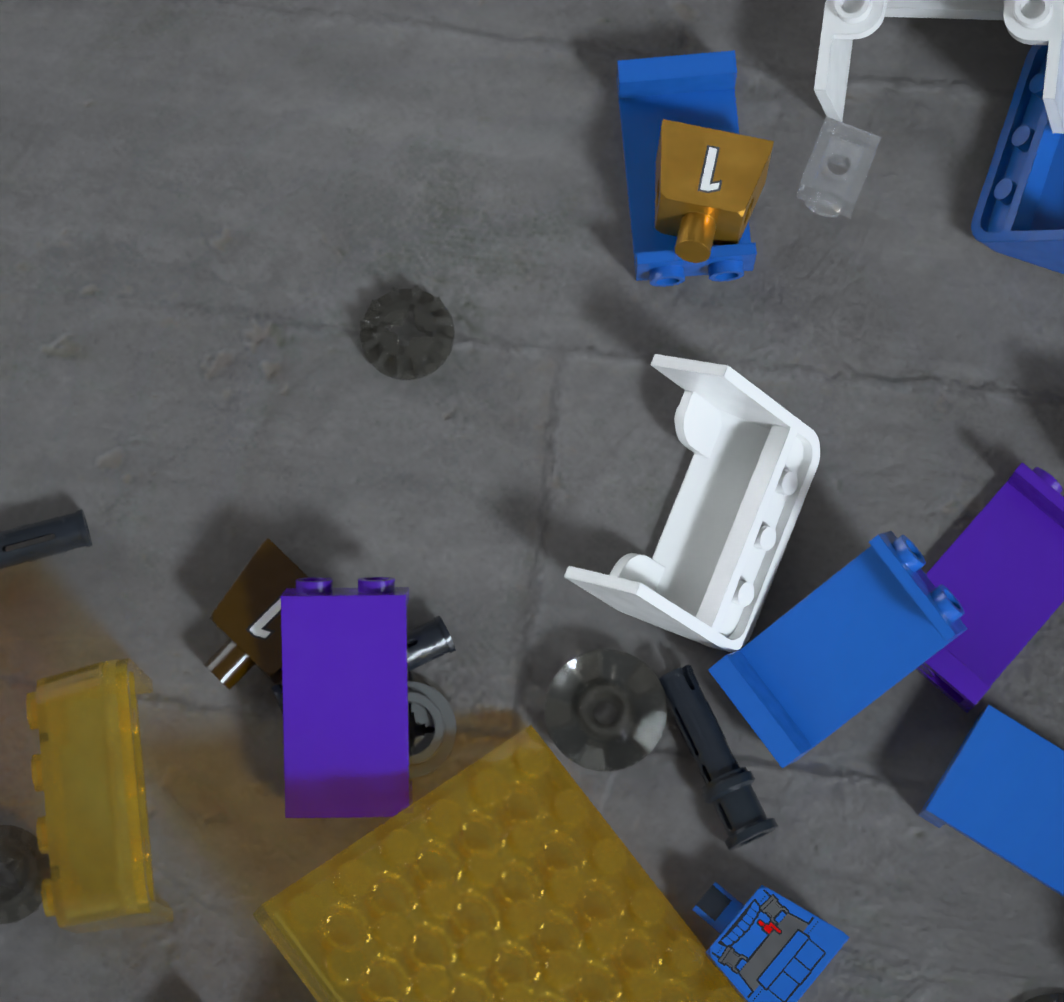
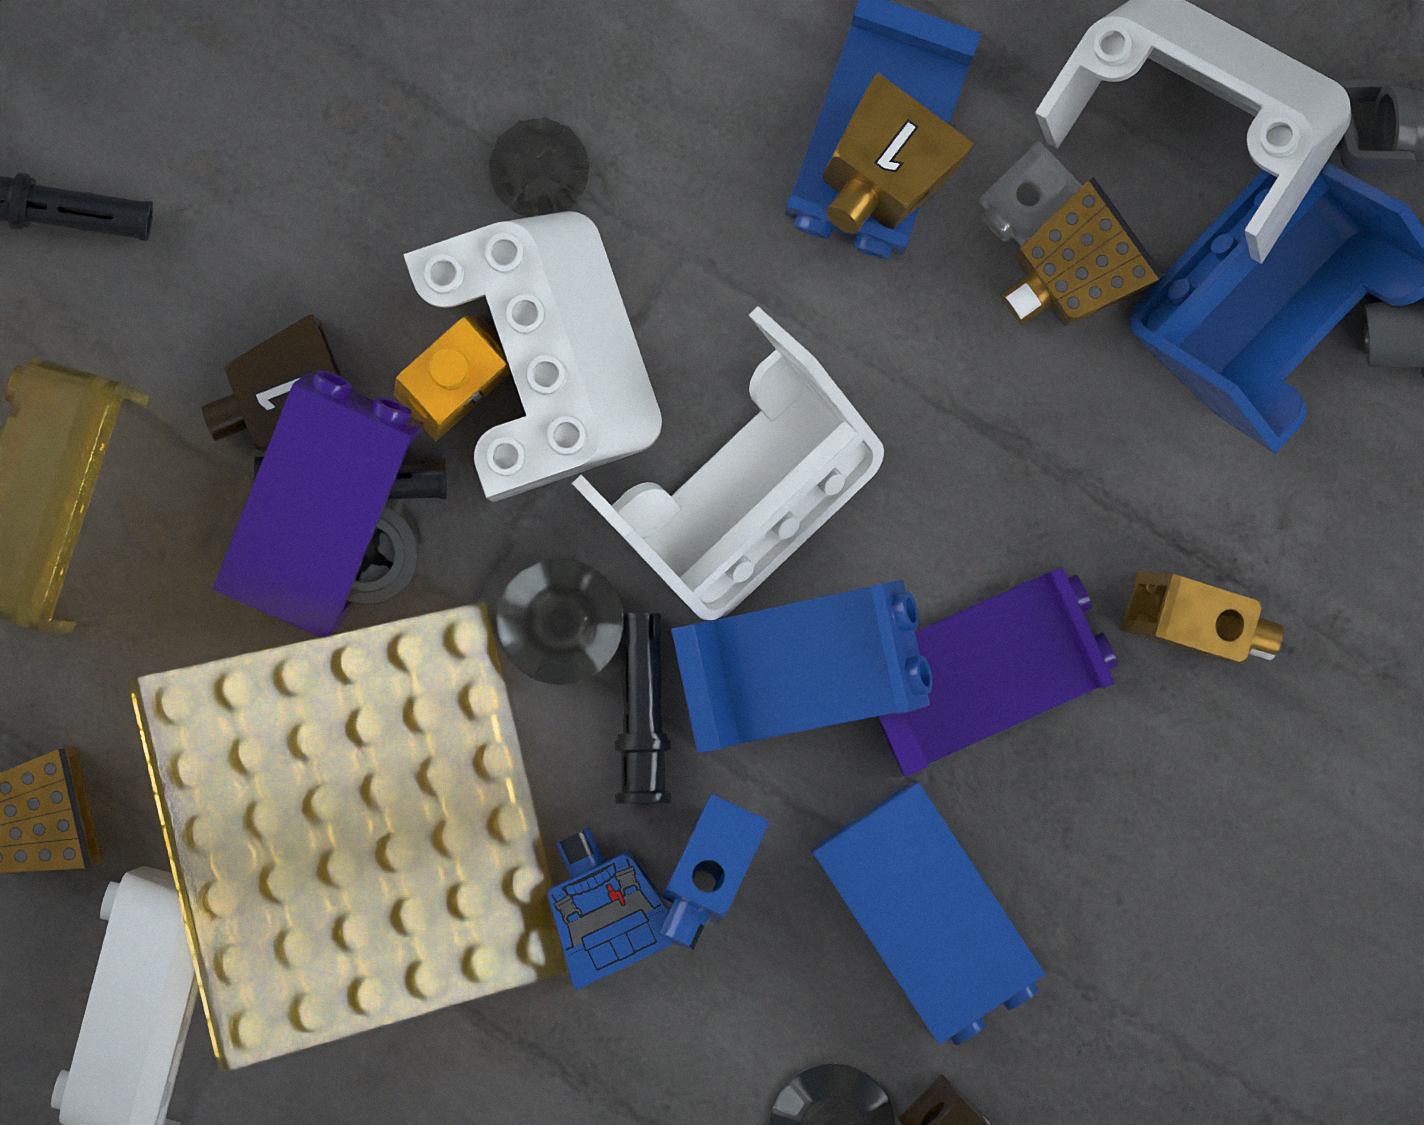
camera: 20 degrees right, 10 degrees up
(415, 537) = (453, 375): none -> light orange torso
(499, 464) = (563, 342): none -> white windscreen
(844, 843) = (723, 847): none -> blue torso
(909, 203) = (1080, 261): none -> pearl gold torso

